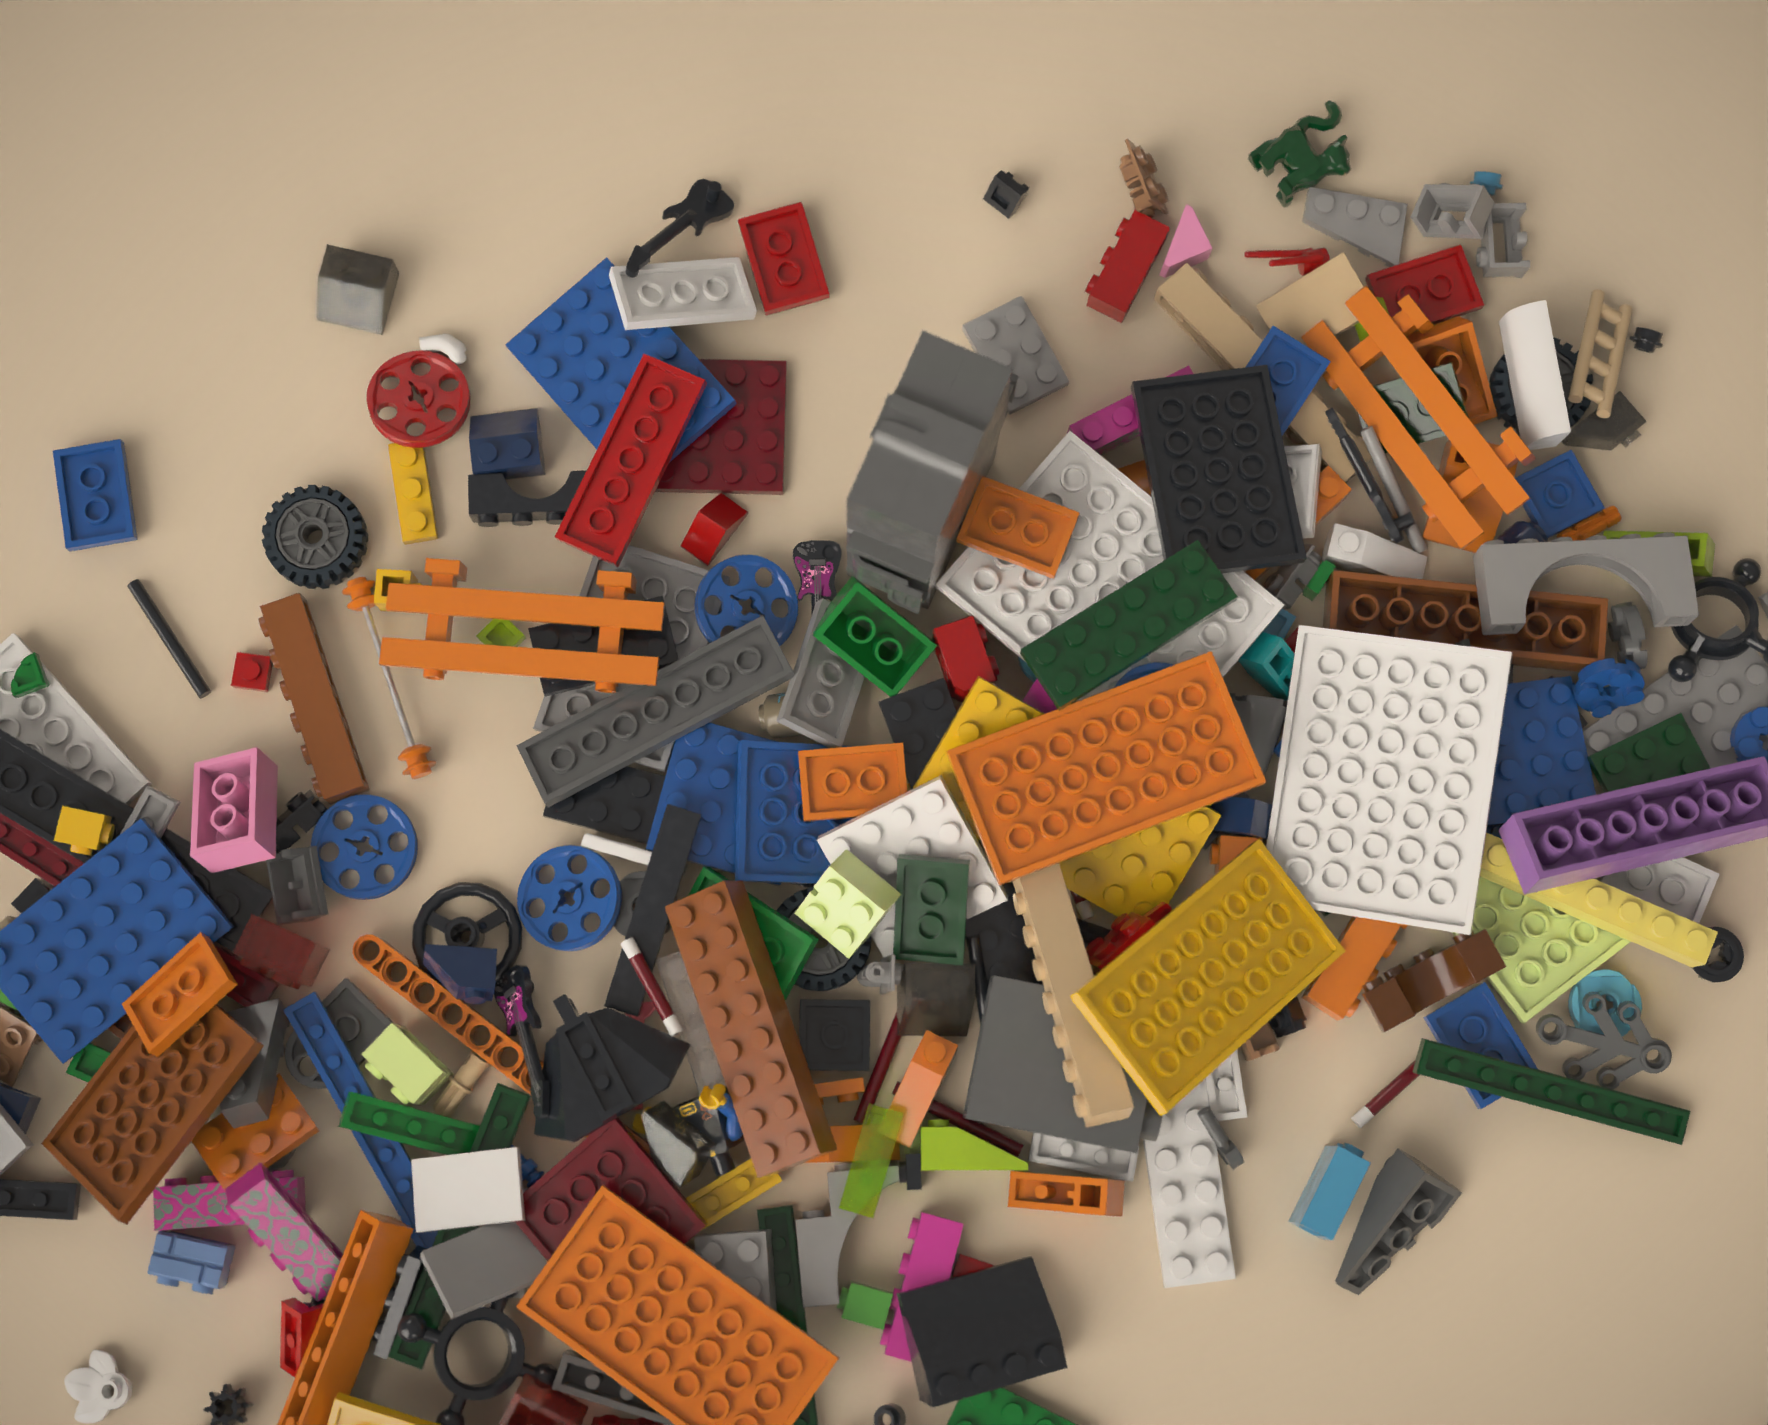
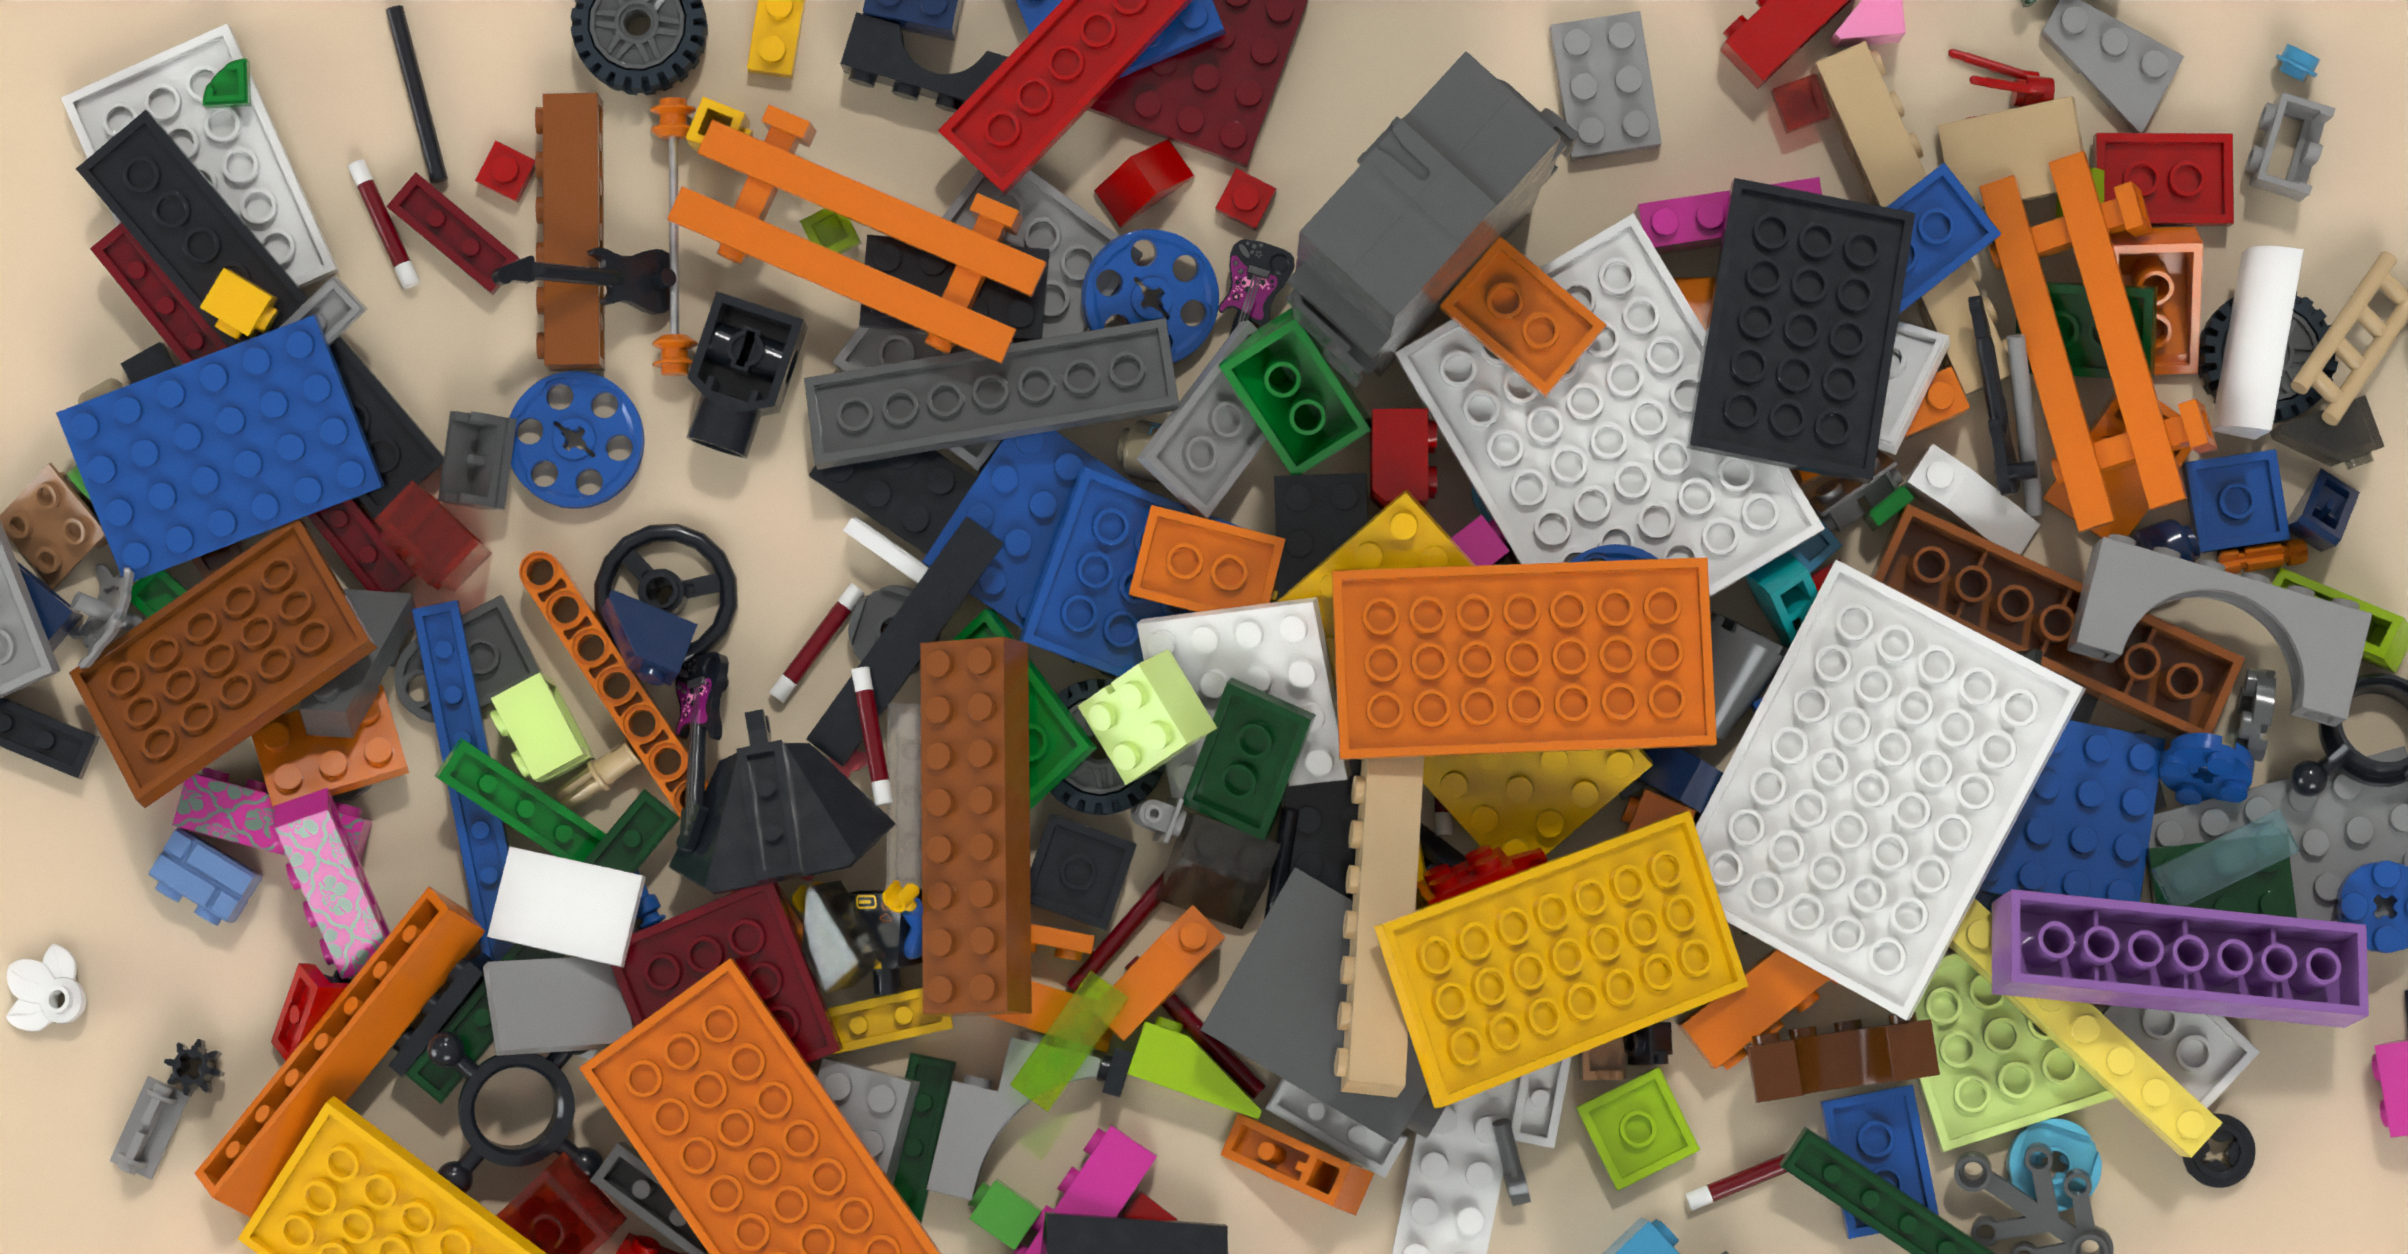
camera: 25 degrees right, 5 degrees up
(55, 1090) = (105, 613): none -> light grey piece
(168, 732) = (383, 224): none -> dark red bar
(179, 994) = (293, 549): orange plate -> none
(226, 726) = (451, 231): none -> dark red plate
(234, 810) = (430, 342): bright pink brick -> none
(300, 812) = (479, 382): black hinge -> none
(370, 717) = (635, 279): none -> black piece
(469, 756) = (741, 371): none -> black brick
(554, 899) = (788, 585): blue wedge -> none
(581, 957) = (817, 642): none -> dark red bar
(790, 516) = (1245, 199): none -> red plate
(1128, 625) = (1615, 489): dark green plate -> none
(1156, 322) = (1800, 103): none -> clear red plate
(1301, 1082) = (1637, 1128): none -> lime plate
(1460, 198) = (2221, 63): light grey window -> none
(1619, 482) = (2323, 511): none -> dark blue slope
(1648, 744) = (2225, 859): none -> clear light blue plate

